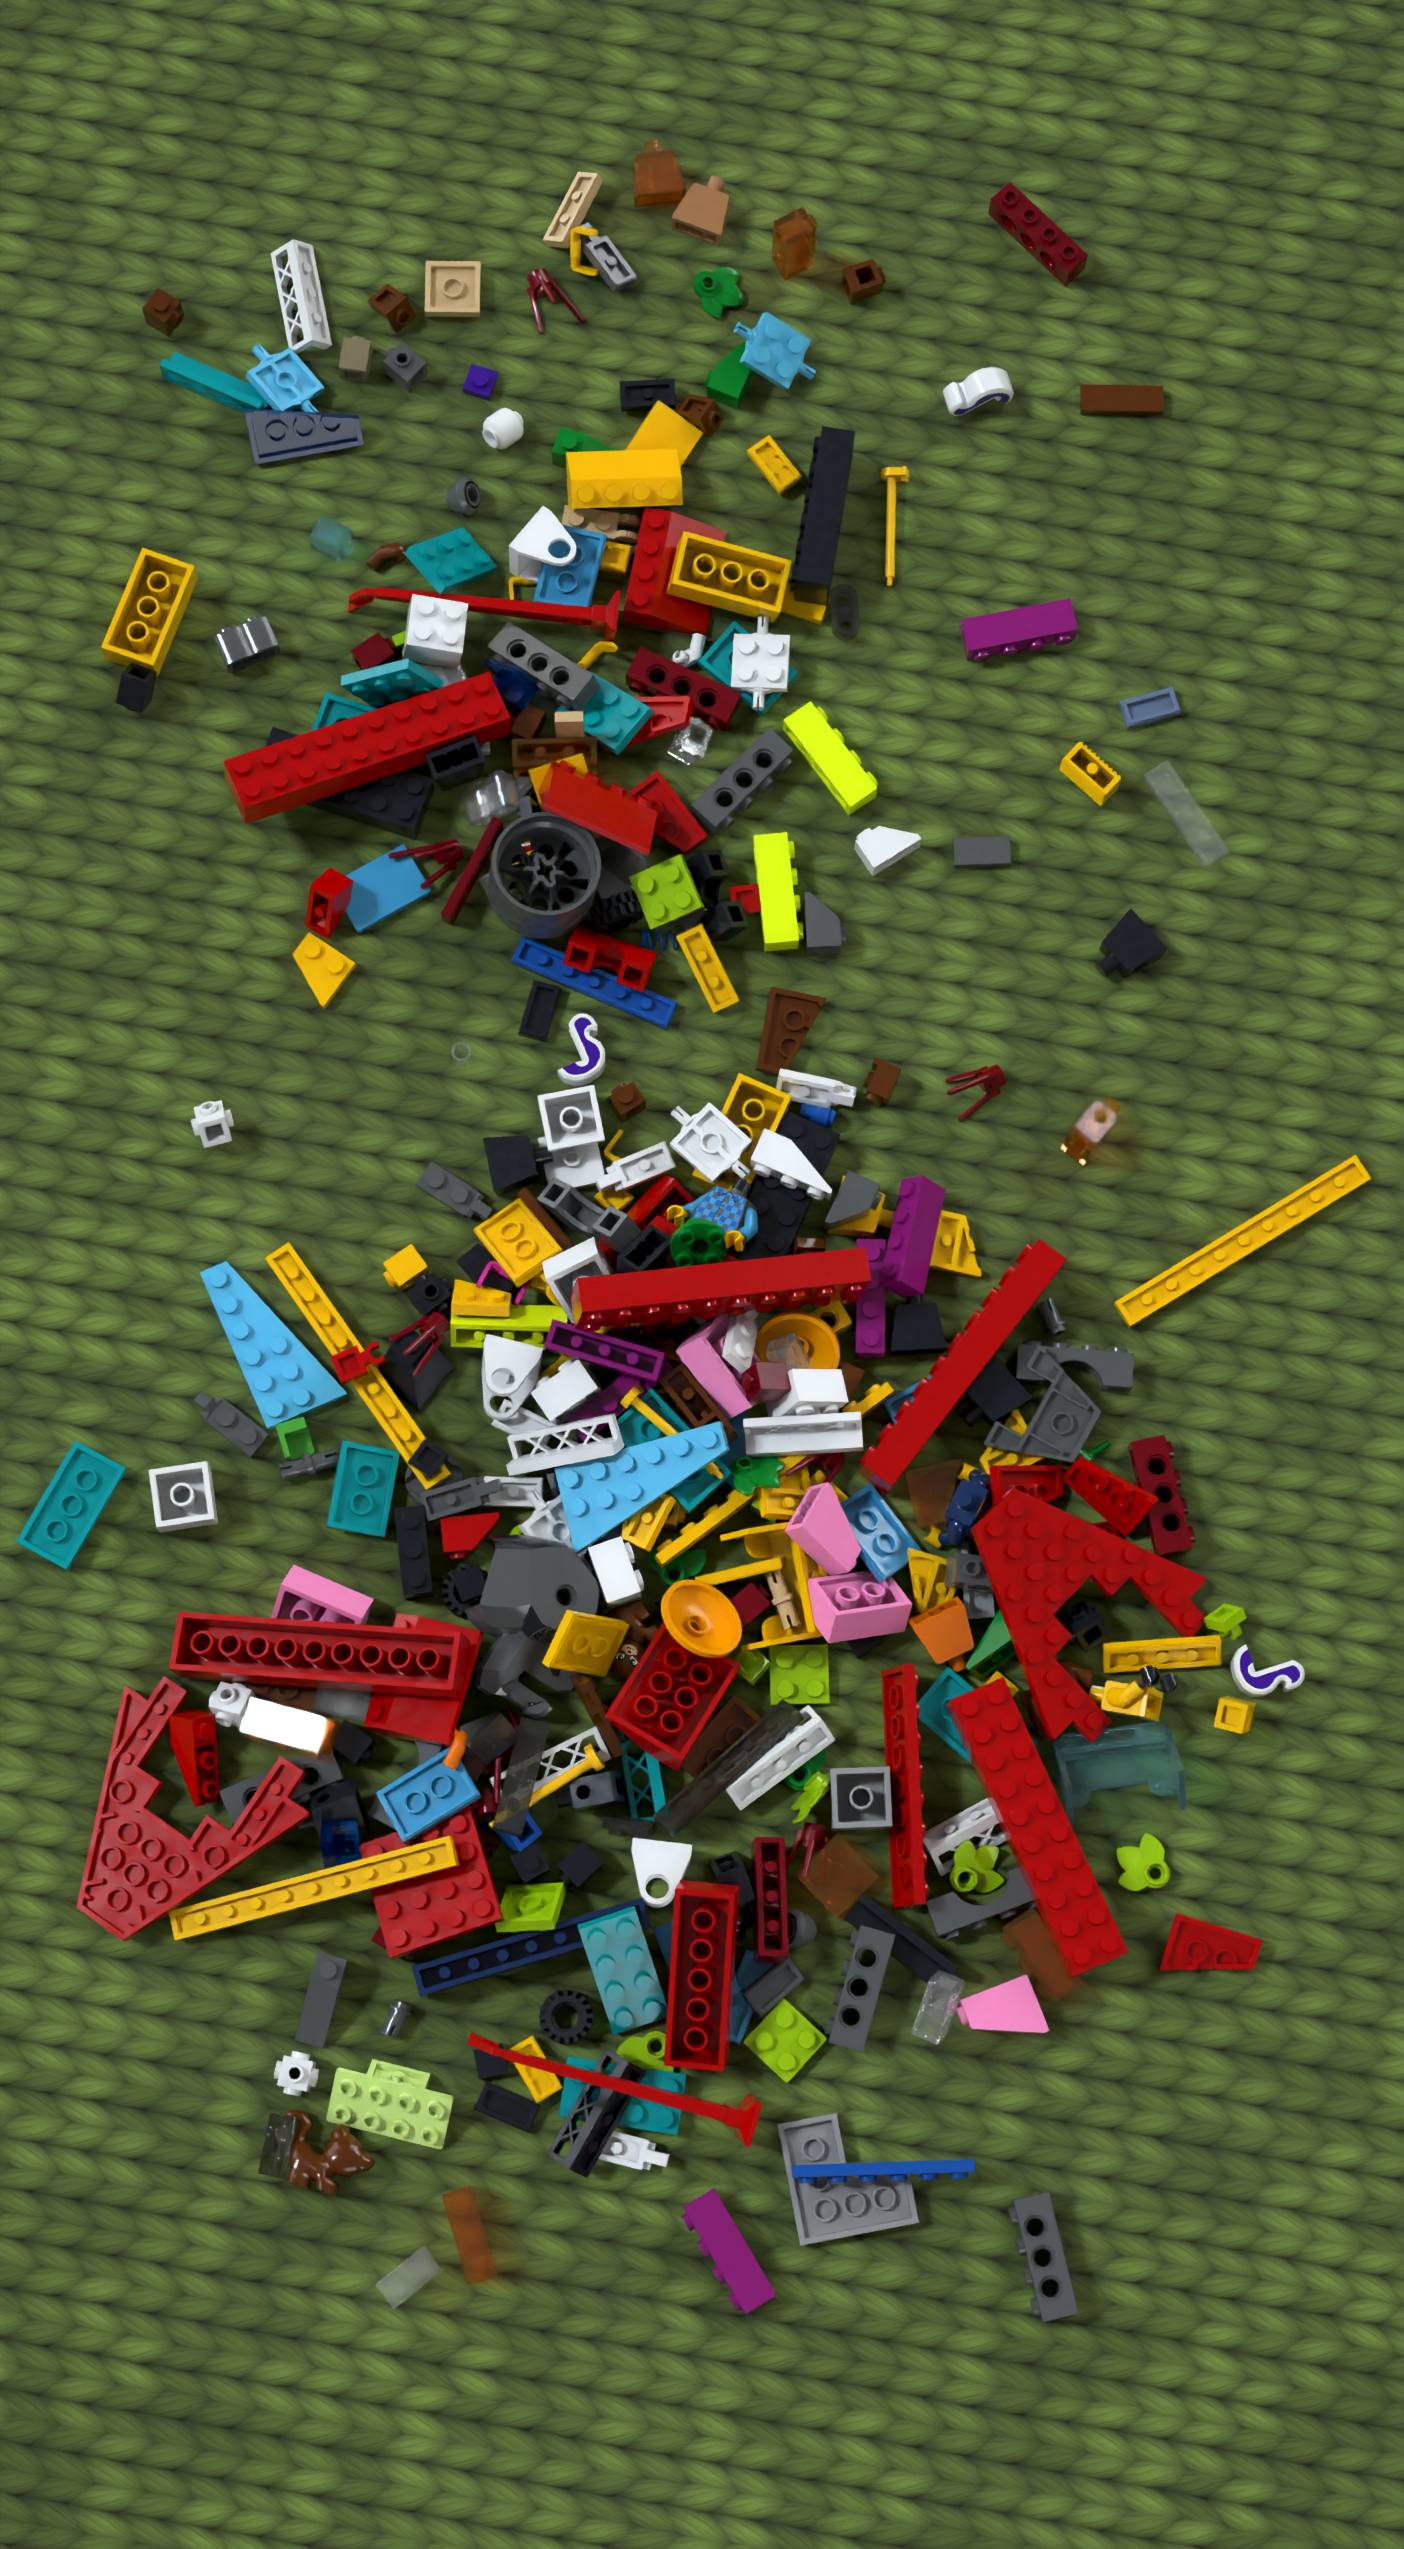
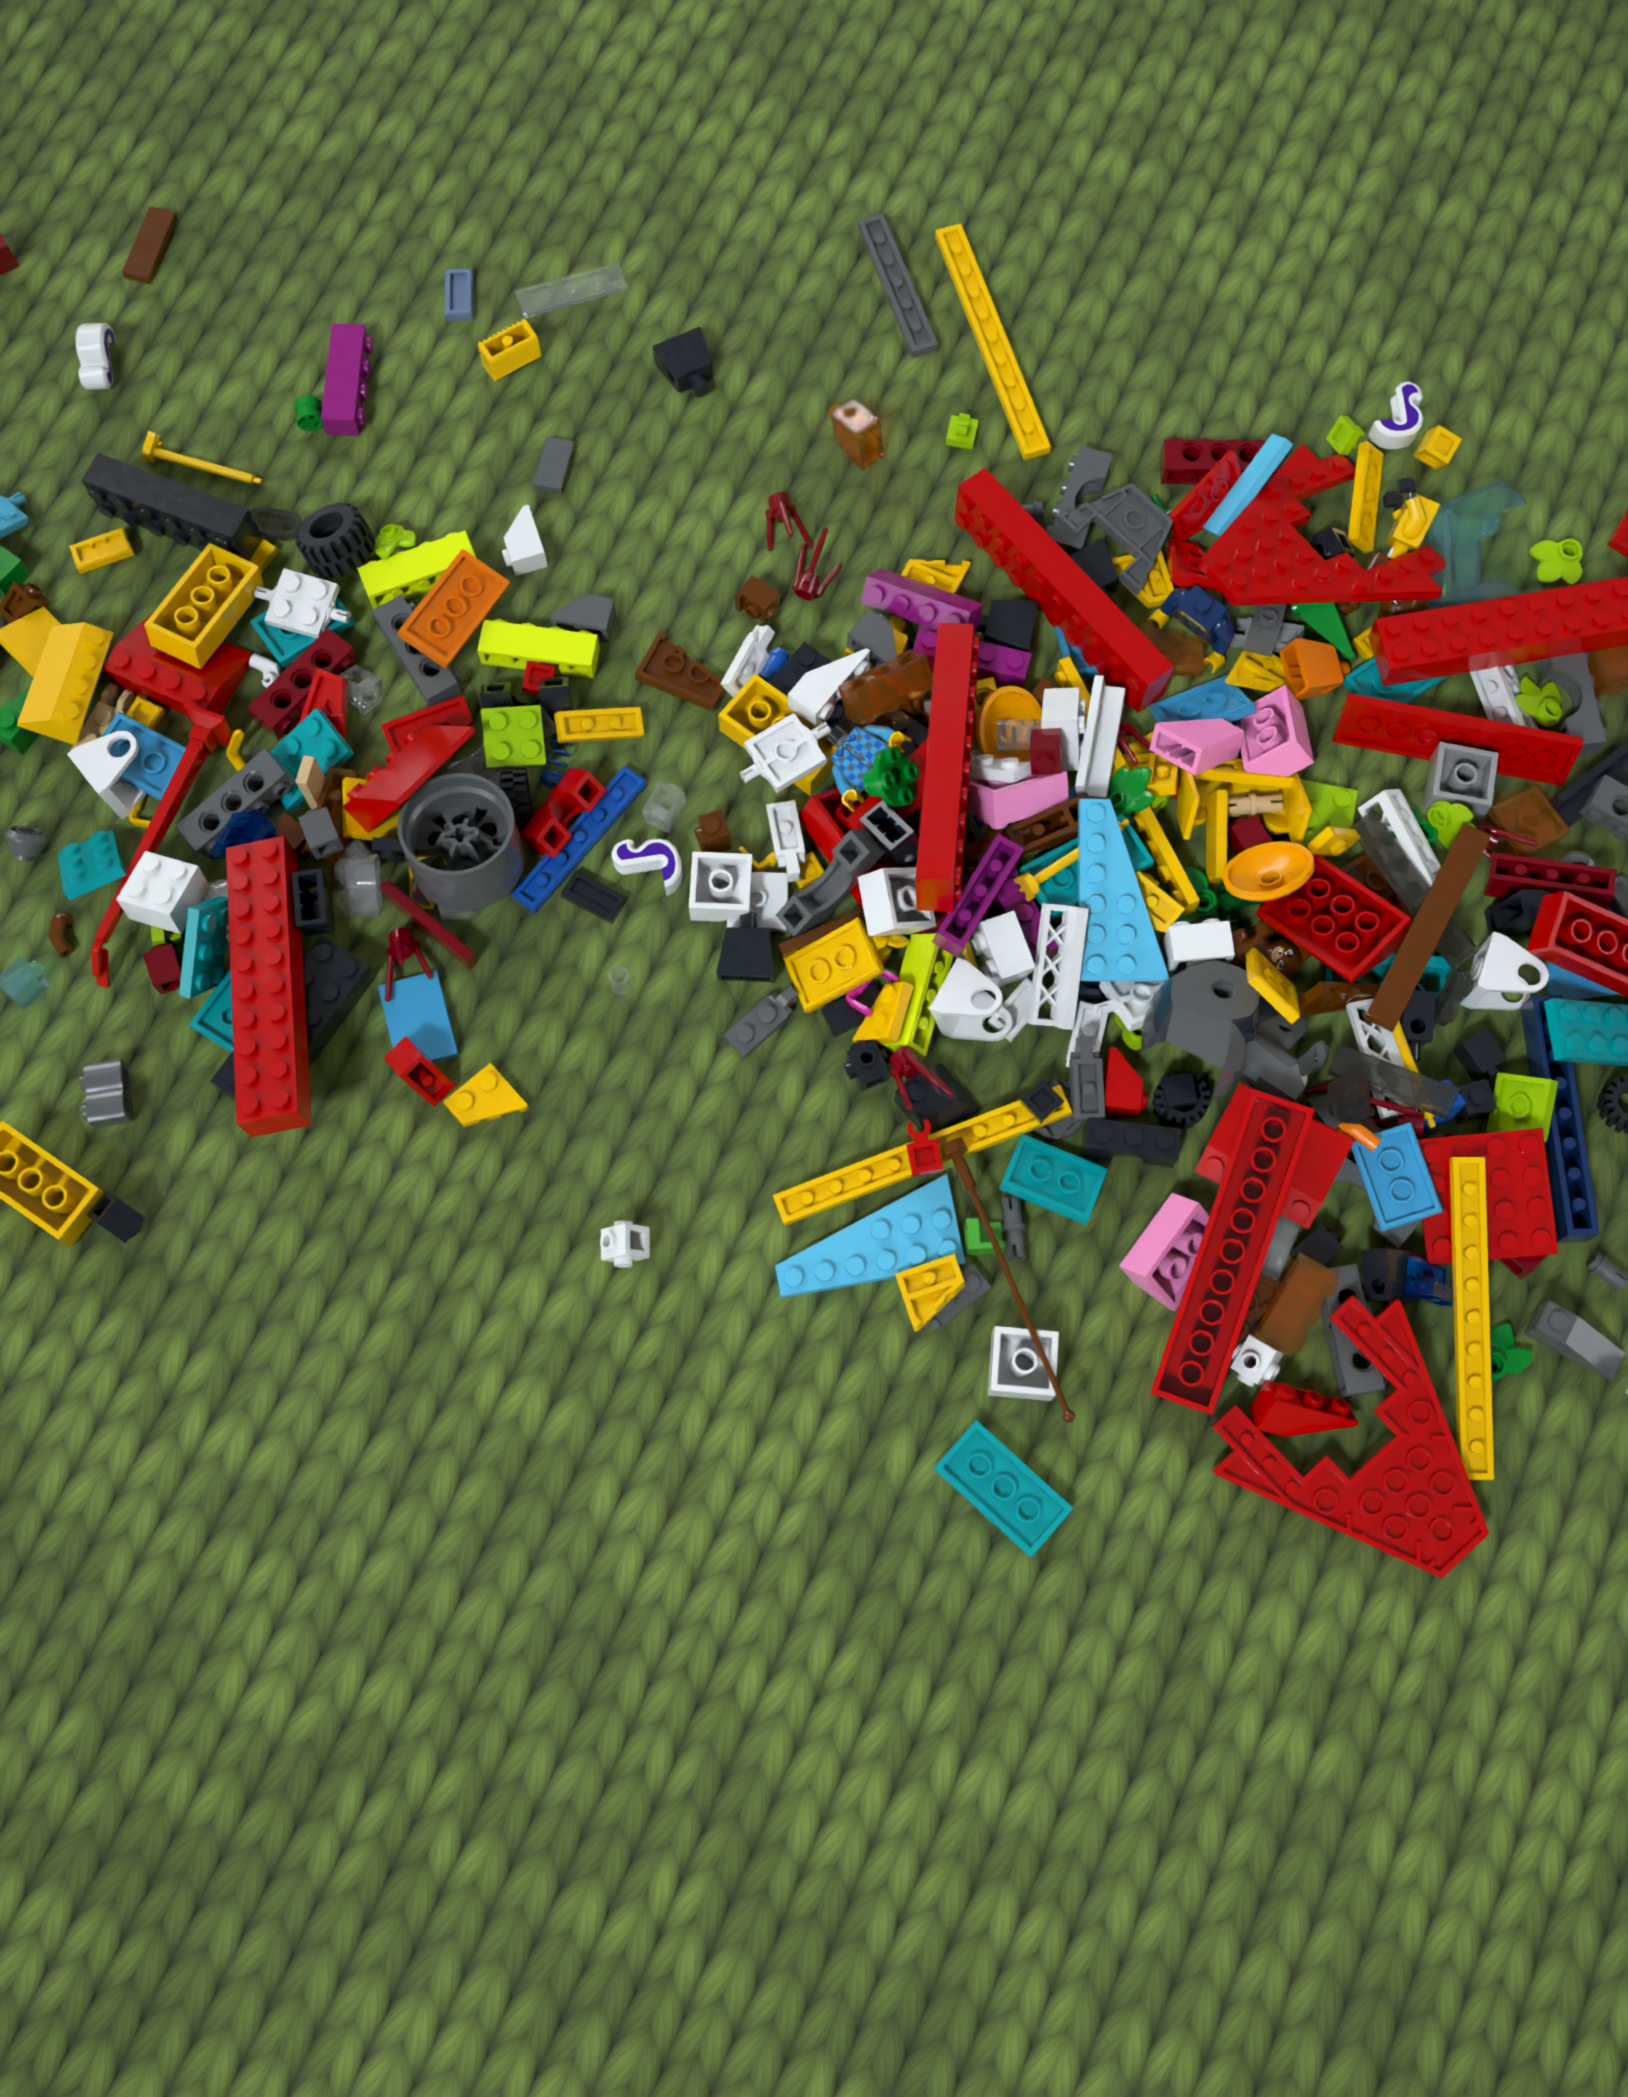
camera: 75 degrees left, 5 degrees down
(232, 1399) = (929, 1288): none -> yellow wing
(299, 1931) = (1504, 1355): none -> green plate
(361, 1390) = (954, 1150): none -> reddish brown piece
(404, 1268) = (830, 1085): yellow brick -> none
(523, 749) = (321, 832): none -> dark grey brick
(638, 1041) = (662, 796): none -> clear brick
(682, 1780) = (1427, 927): none -> reddish brown tile
(757, 1682) = (1333, 841): none -> yellow plate
(787, 801) = (453, 608): none -> orange plate
(798, 1217) = (886, 687): none -> clear orange brick
(833, 672) = (335, 540): none -> black tyre
(853, 722) = (392, 537): none -> lime plate
(914, 1124) = (807, 584): none -> dark red plant
(971, 605) = (308, 412): none -> green wheel
(1128, 1526) = (1248, 484): none -> medium azure tile
(1129, 1236) = (962, 431): none -> lime tile
(1280, 1132) = (897, 286): none -> dark grey plate

